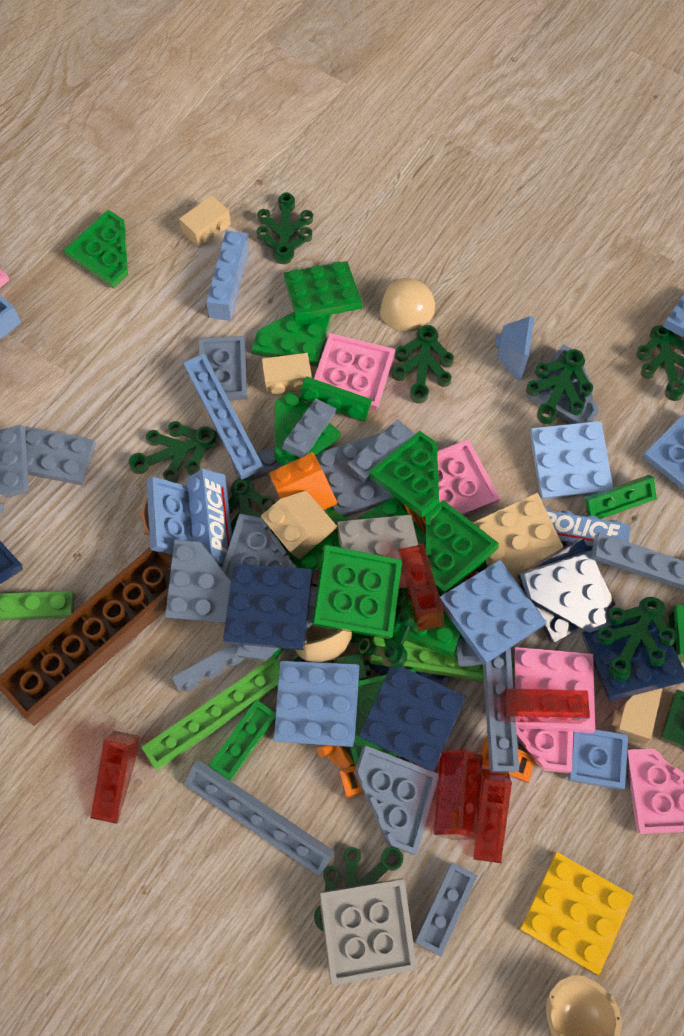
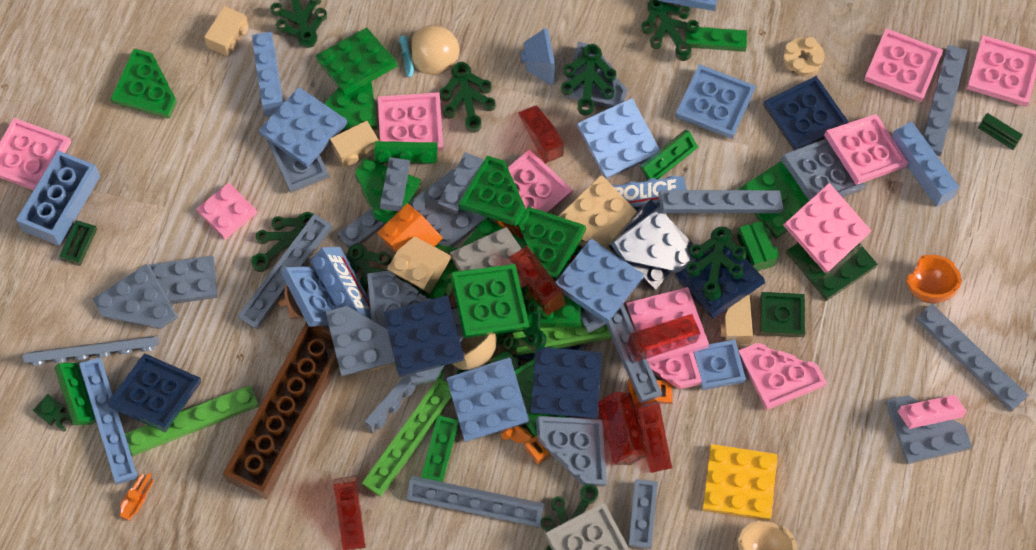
camera: 20 degrees left, 0 degrees up
(129, 399) = (226, 210): none -> bright pink plate
(174, 470) = (274, 285): none -> sand blue plate
(223, 416) = (317, 198): medium blue plate -> none
(240, 338) = (303, 127): none -> medium blue plate
(377, 300) = (406, 53): none -> medium azure piece
(489, 428) = (542, 134): none -> clear red slope

